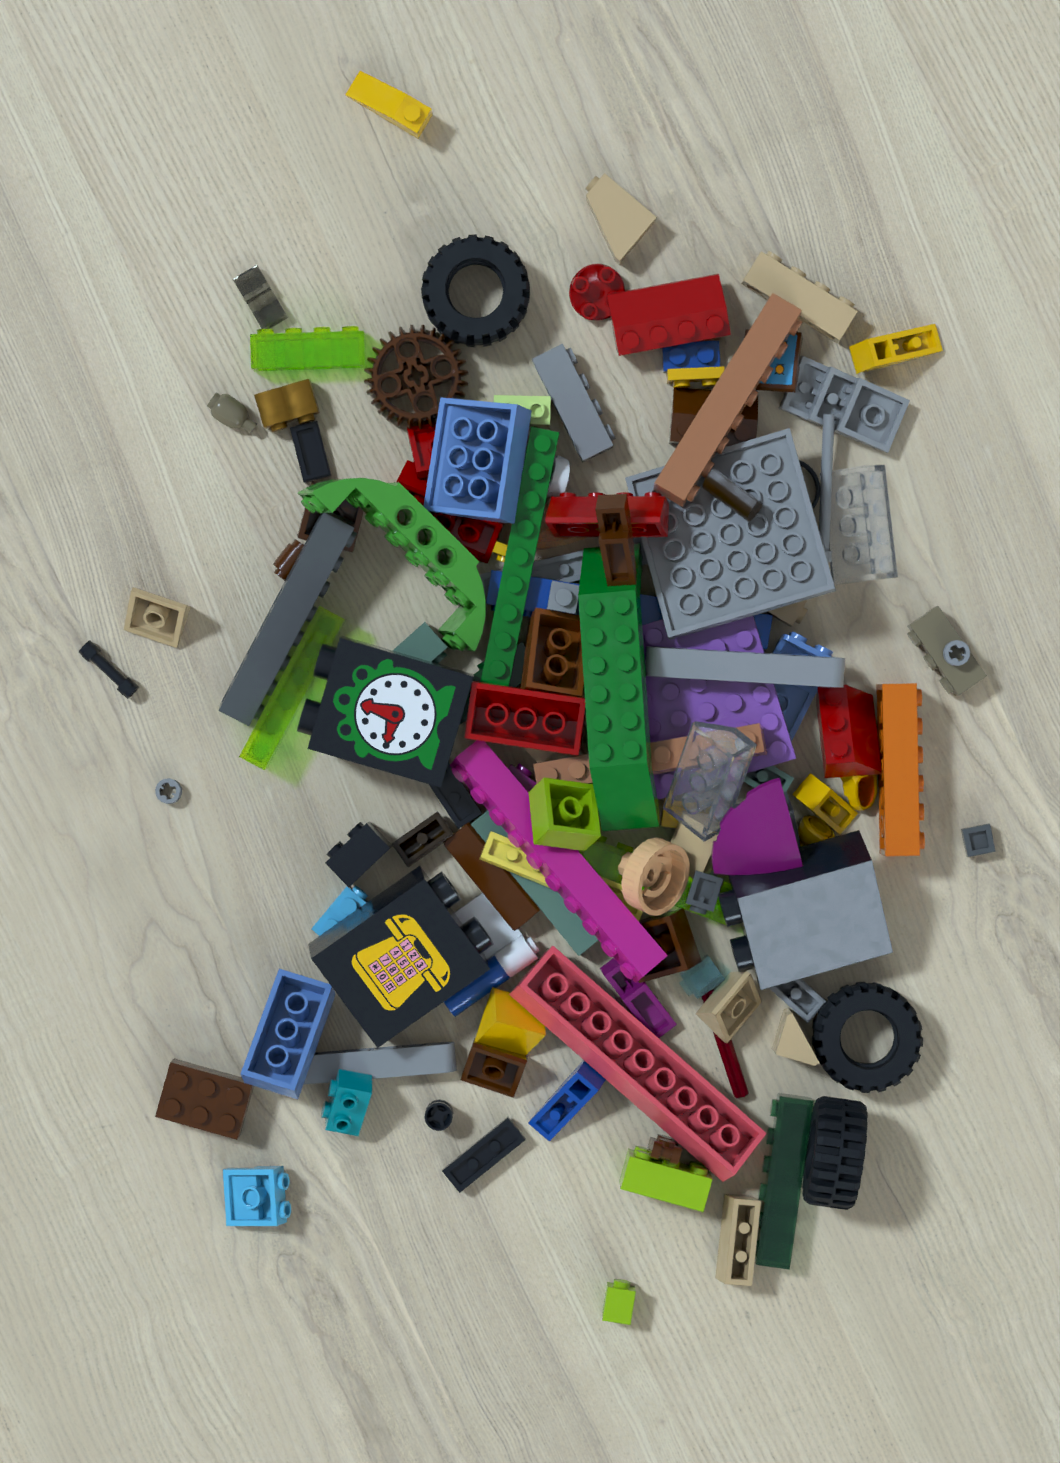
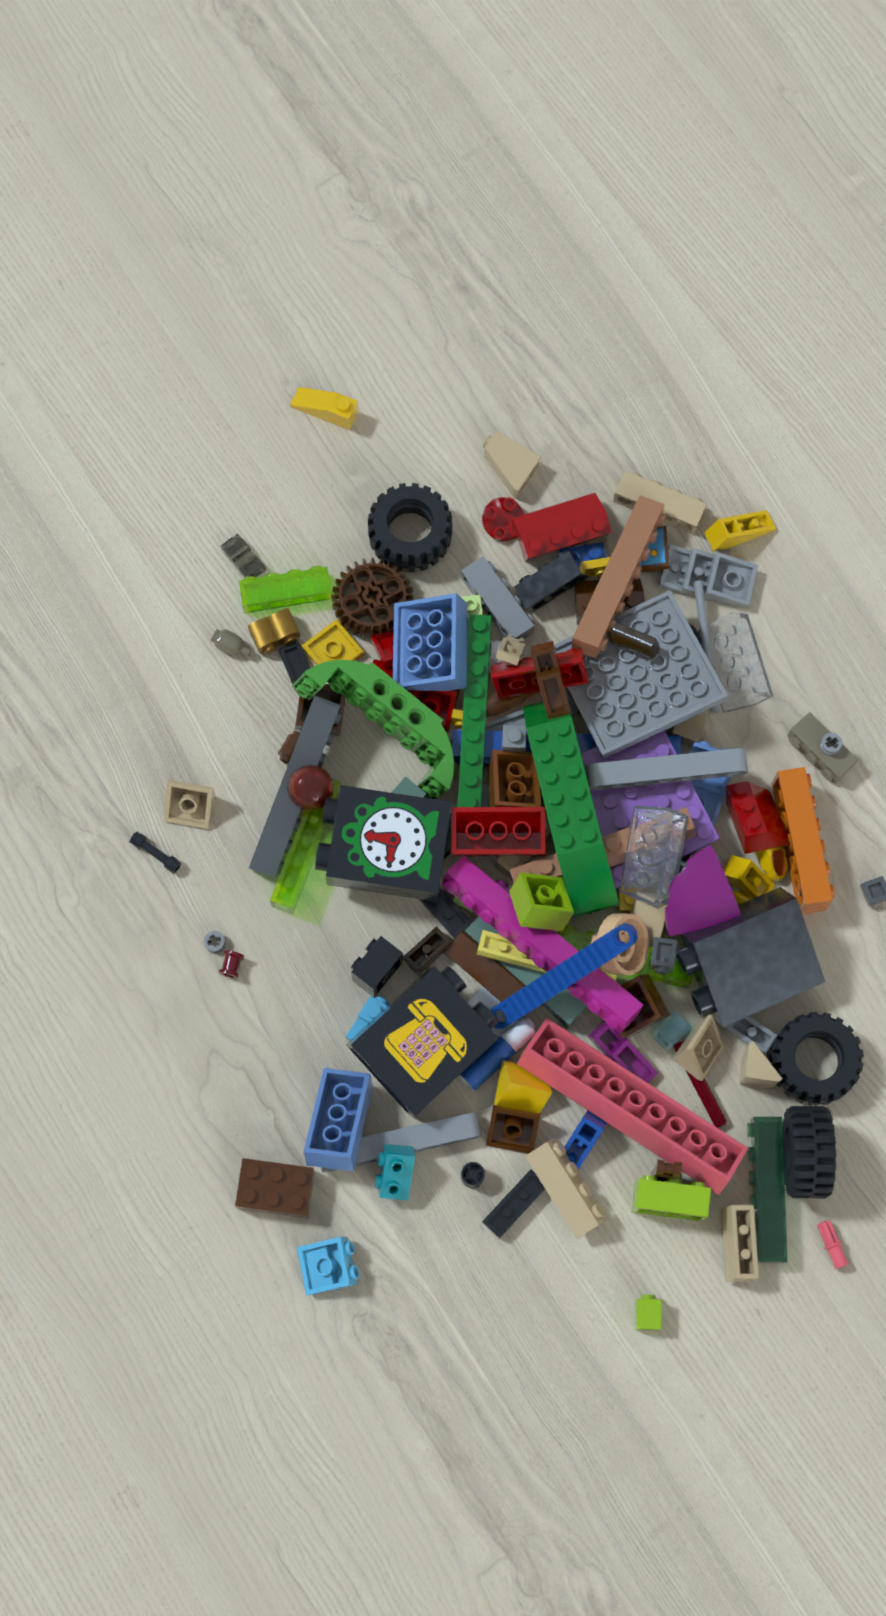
camera: 10 degrees left, 15 degrees down
(184, 822) = (231, 964): none -> dark red bush
(304, 625) = (310, 787): none -> clear red cylinder
(358, 436) = (332, 644): none -> yellow tile
(545, 1147) = (566, 1187): none -> tan brick
(576, 483) = (510, 650): none -> tan plate
(577, 910) = (564, 975): none -> blue gear
(642, 389) = (550, 581): none -> black brick
(847, 1253) = (832, 1244): none -> coral axle

